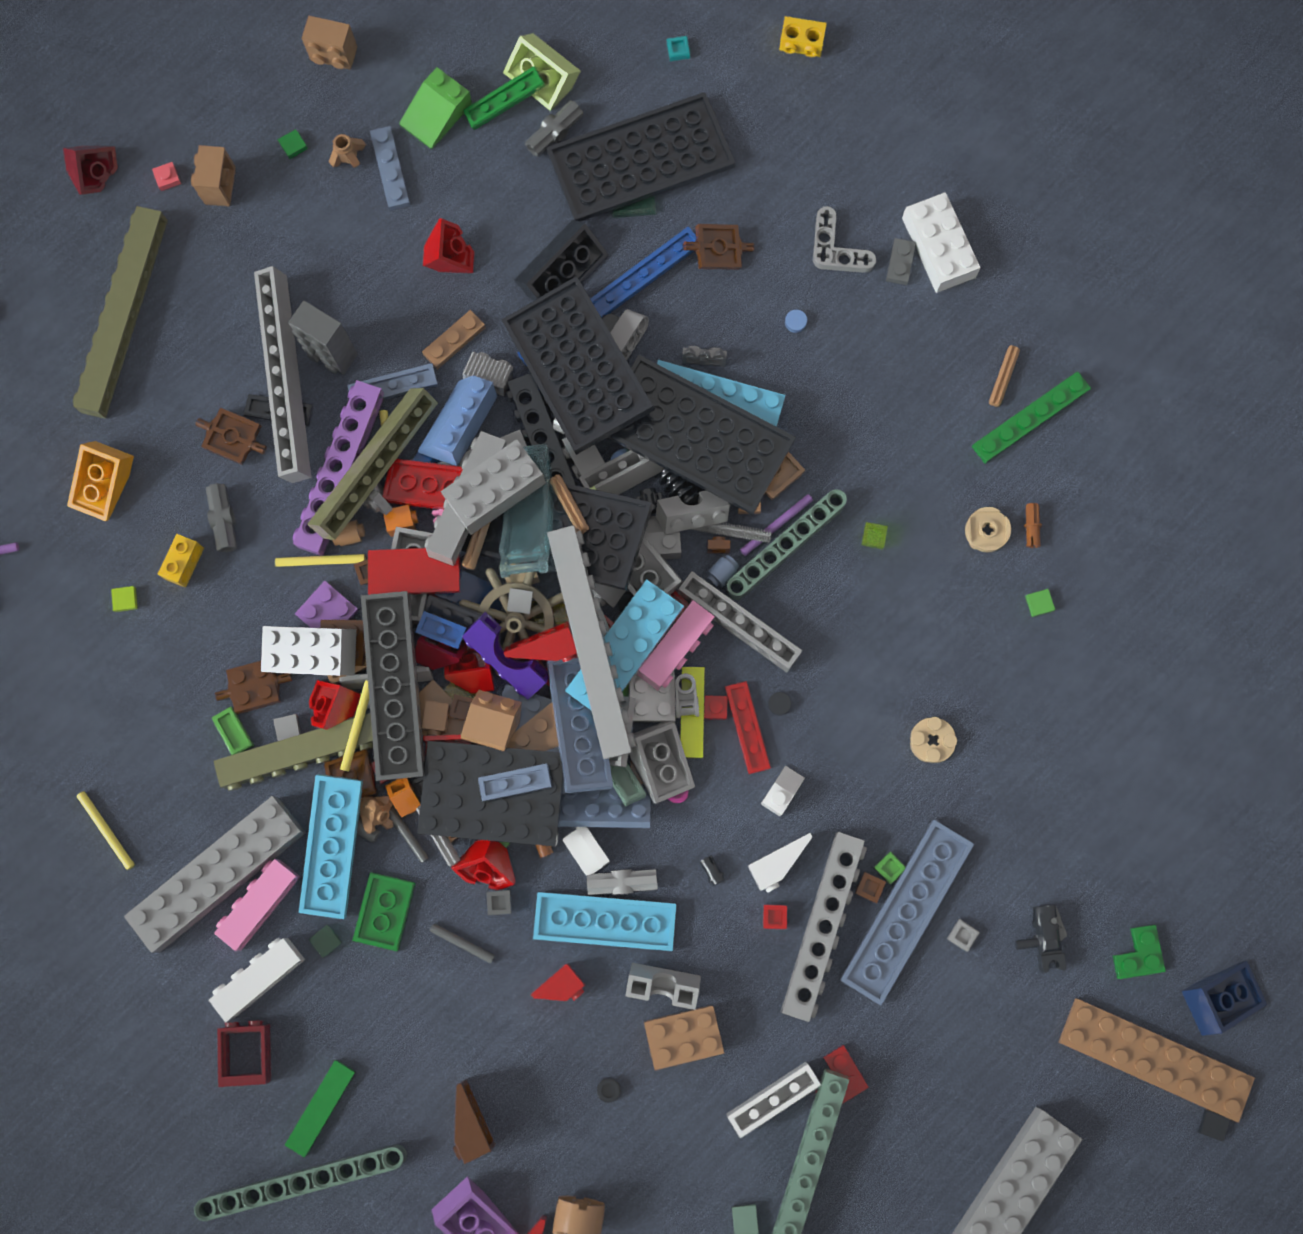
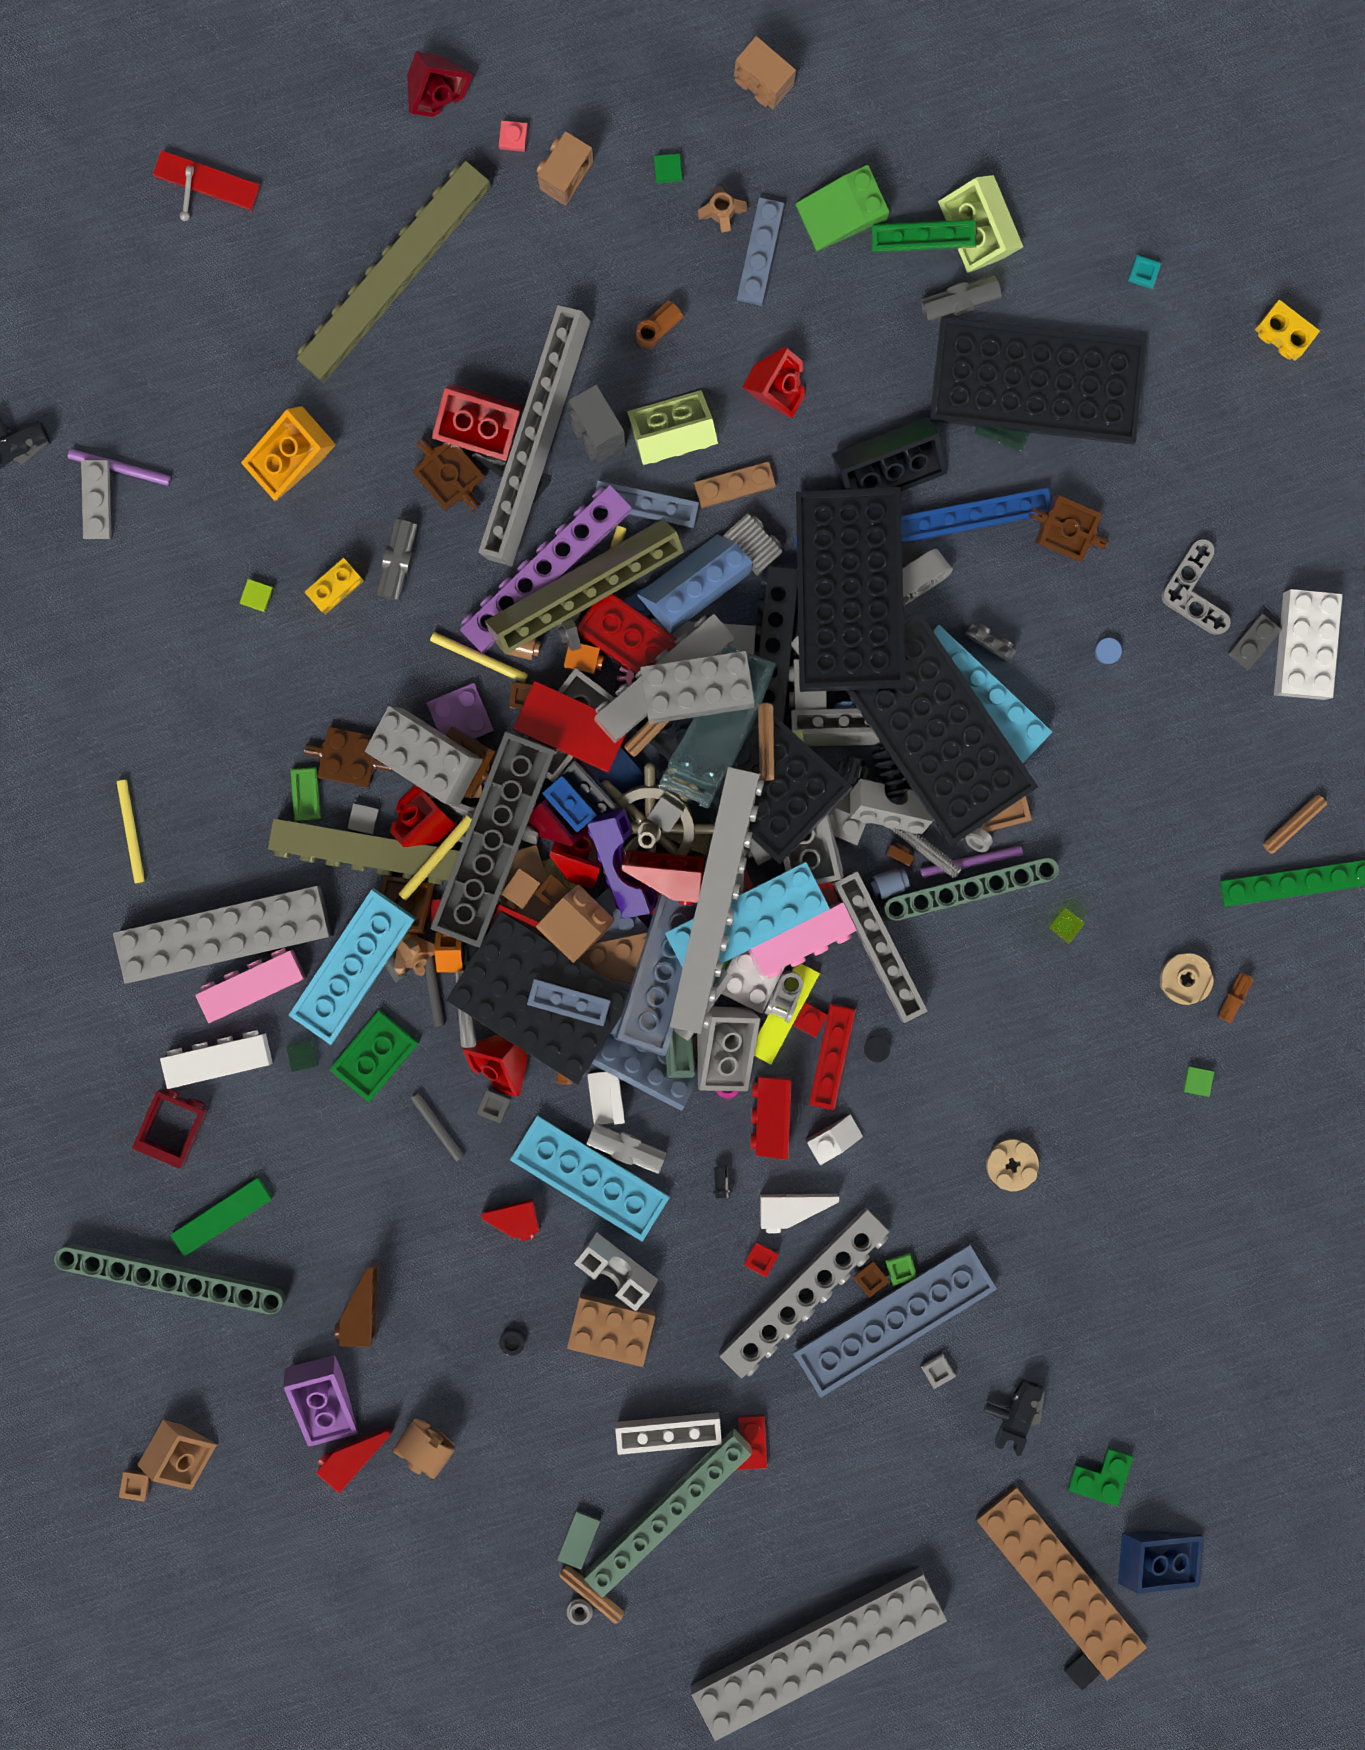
camera: 20 degrees right, 10 degrees up
(233, 386) = (477, 421): none -> red slope
(338, 253) = (659, 323): none -> dark orange piece
(386, 320) = (672, 427): none -> yellowish green slope
(723, 796) = (771, 1116): none -> red slope
(773, 504) = (979, 840): none -> light grey tile

